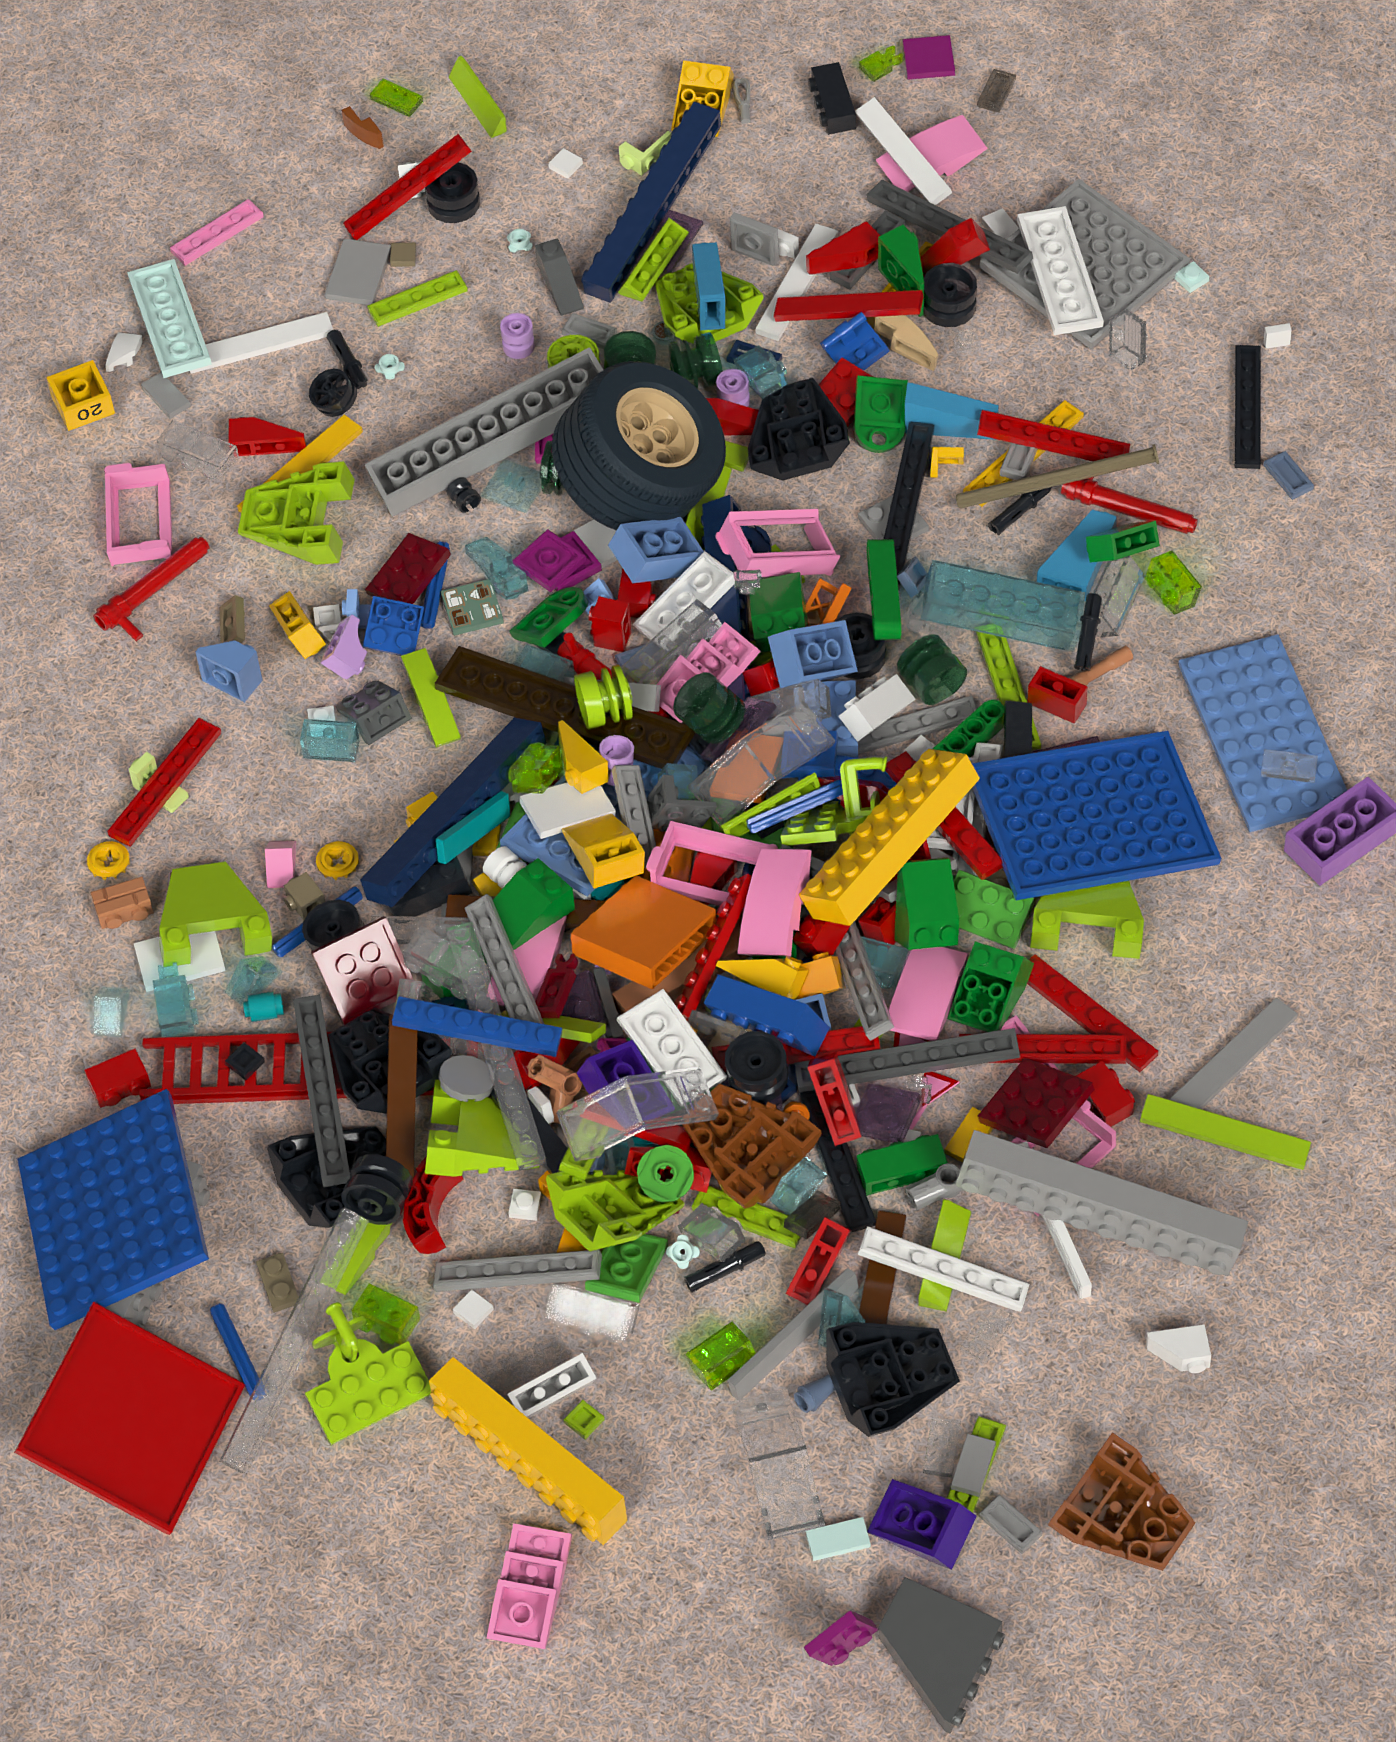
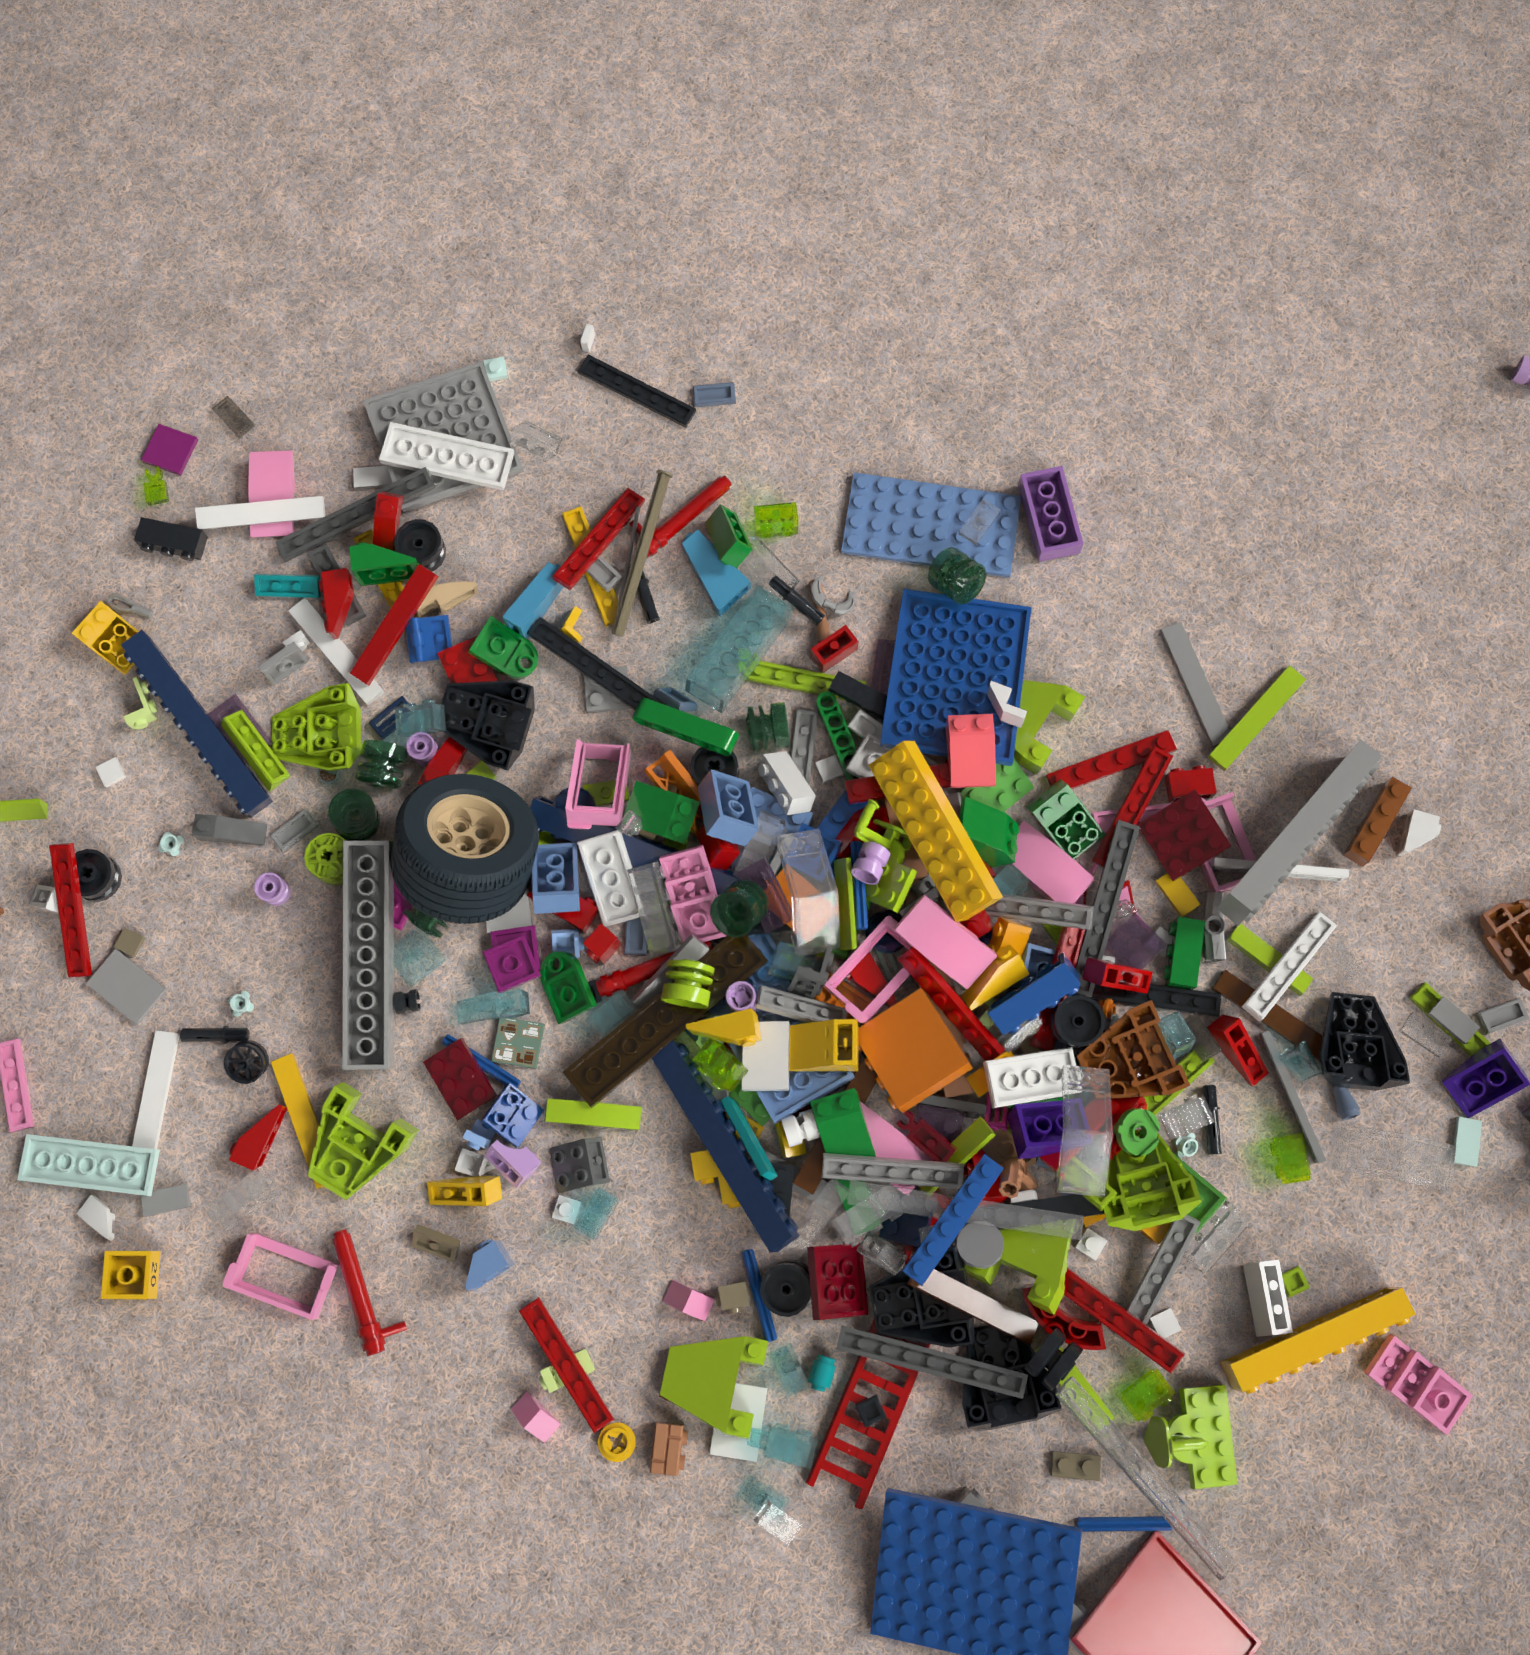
camera: 65 degrees left, 20 degrees up
(92, 1026) = (778, 1522): none -> clear plate
(98, 782) = (535, 1417): none -> bright pink slope
(117, 1078) = (835, 1520): red brick -> none
(334, 851) = (720, 1258): yellow gear -> none
(417, 298) = (181, 950): lime tile -> none
(453, 1255) = (1122, 1322): none -> red tile
(709, 286) = (315, 718): dark azure slope -> none
(821, 796) = (870, 863): none -> lavender wheel
(838, 205) = (287, 585): none -> teal plate
(1005, 843) = (971, 750): none -> coral slope
(1081, 855) = (1007, 713): none -> white slope
(1106, 660) = (820, 600): none -> light grey piece
(1170, 1298) = (1377, 821): none -> dark orange brick
(1207, 763) = (957, 575): none -> clear green wheel

